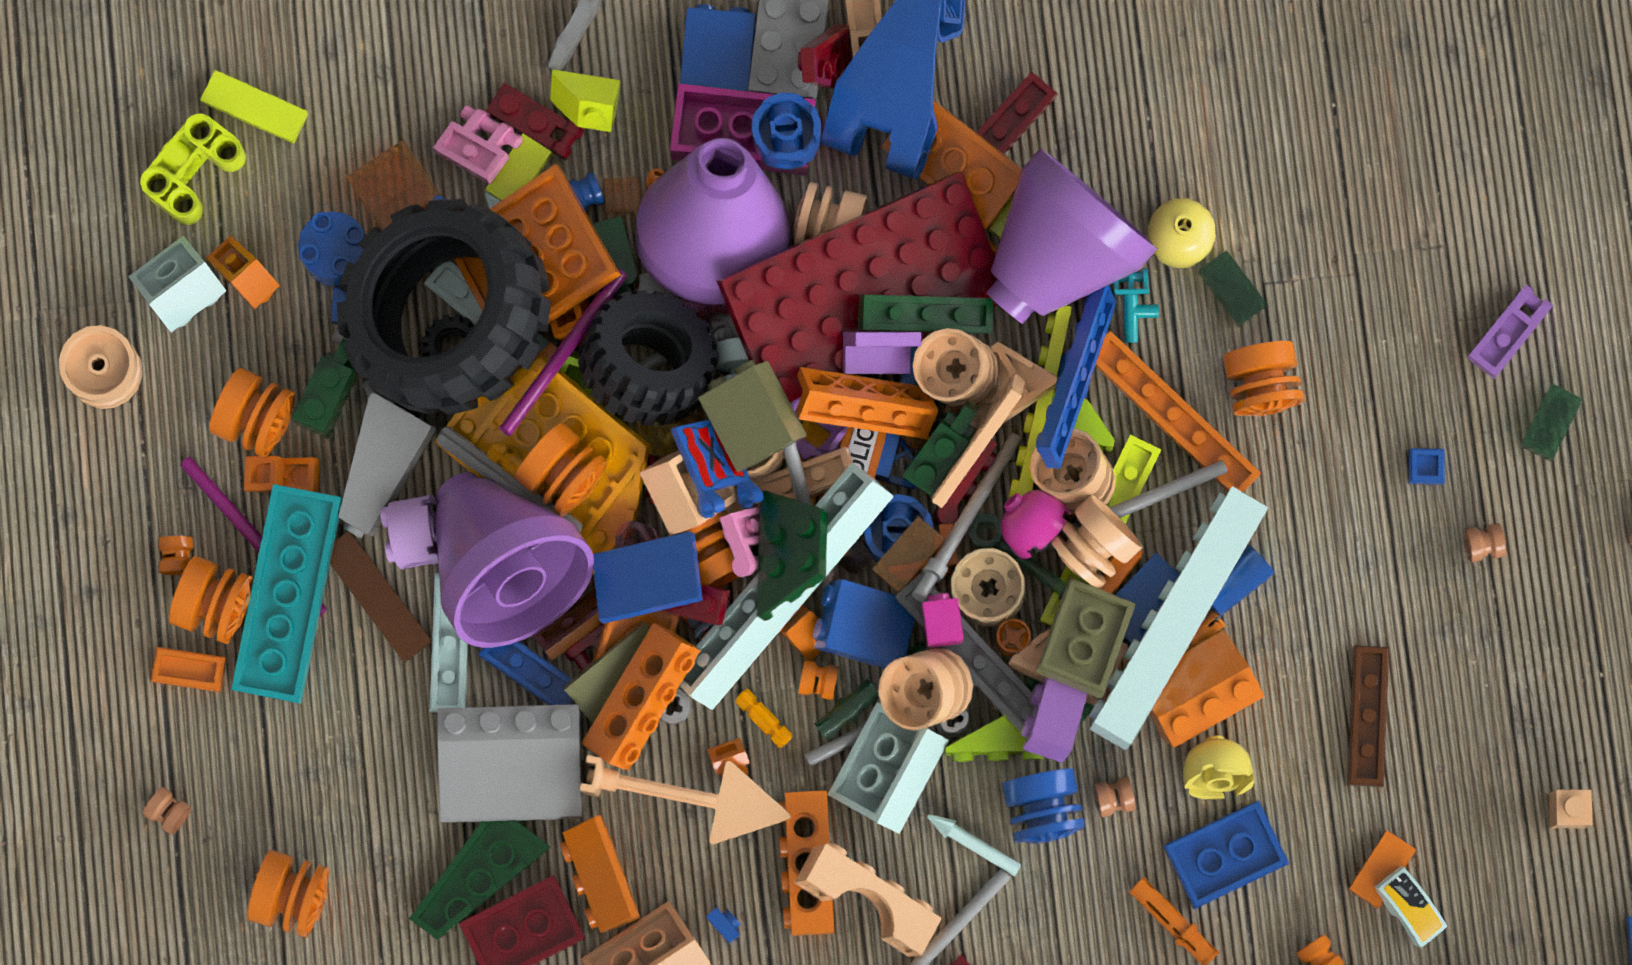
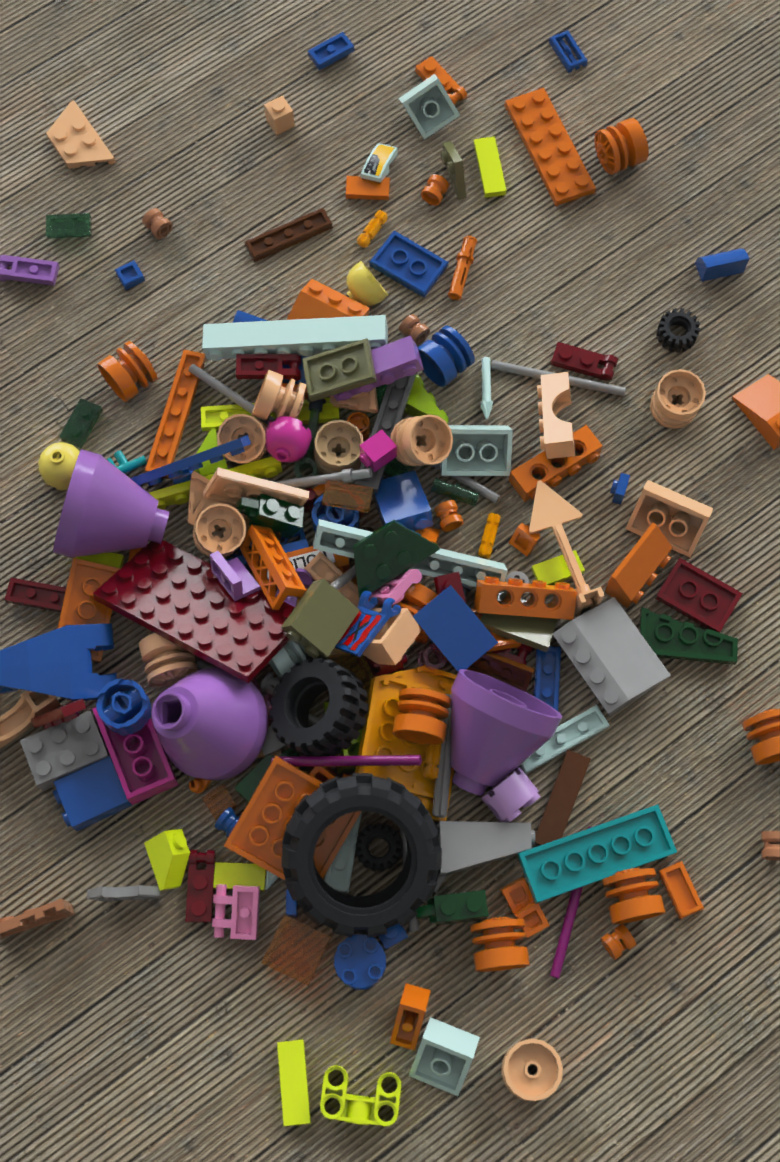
camera: 120 degrees left, 10 degrees down
(666, 767) = (554, 569): none -> neon yellow tile
(925, 313) = (195, 564): dark green plate -> none
(1159, 559) = (257, 365): none -> dark red plate
(1310, 836) = (372, 228): none -> light orange axle

